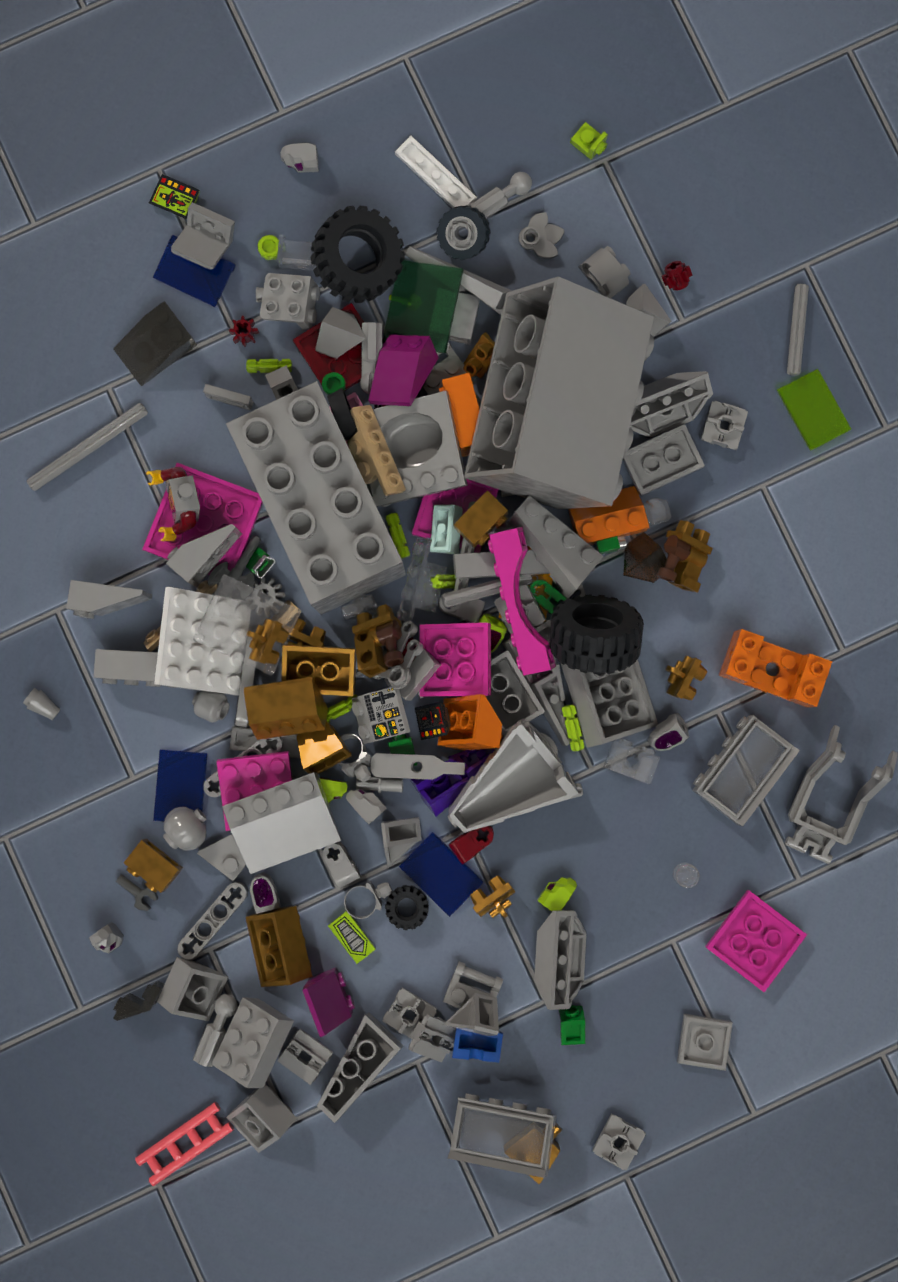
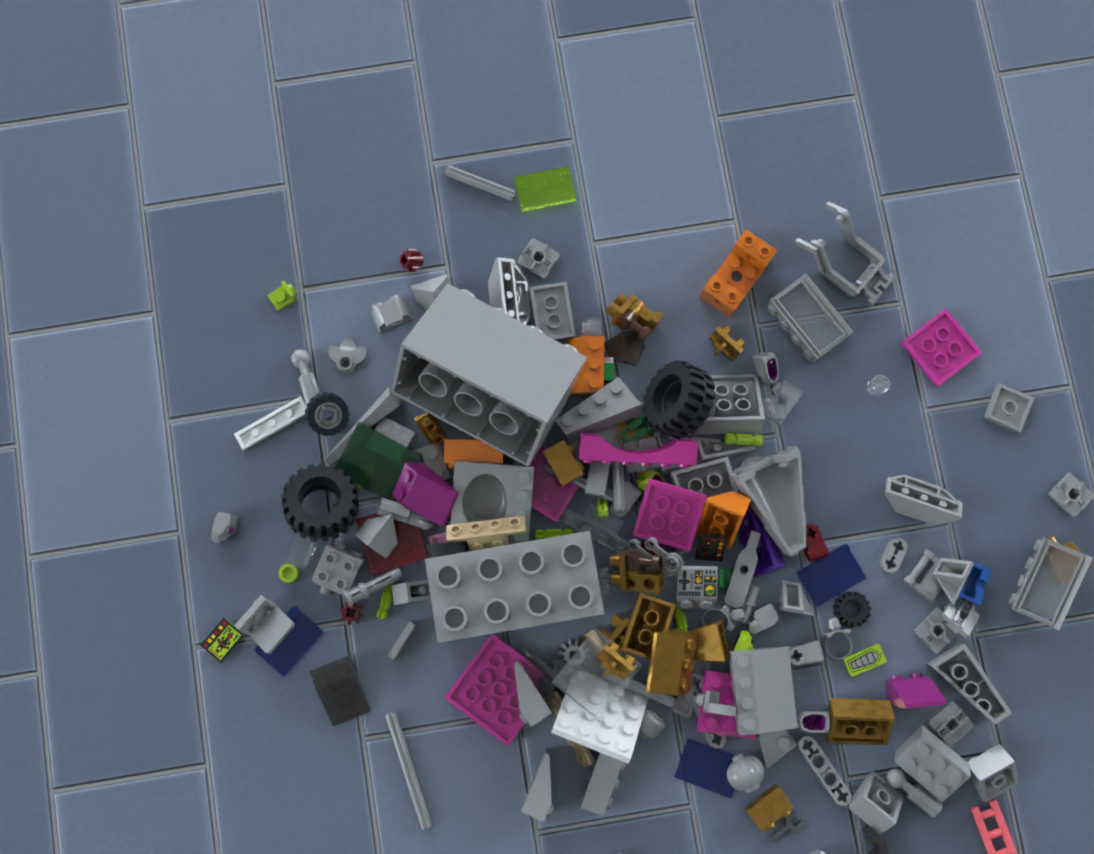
camera: 75 degrees left, 5 degrees down
(182, 500) = (477, 700): torso -> none
(249, 765) = (710, 703): none -> light grey piece
(260, 563) = (546, 651): piece -> none
(268, 336) = (393, 576): none -> light grey pin
(333, 382) = (418, 551): green tile -> none
(421, 671) = (670, 543): light grey slope -> none
(444, 535) = (561, 496): light aqua slope -> none
(484, 948) = (897, 557): none -> light grey beam
(501, 892) = (864, 547): pearl gold hips -> none
(557, 893) = (870, 487): lime rock -> none
(572, 1025) = (975, 505): green bracket -> none

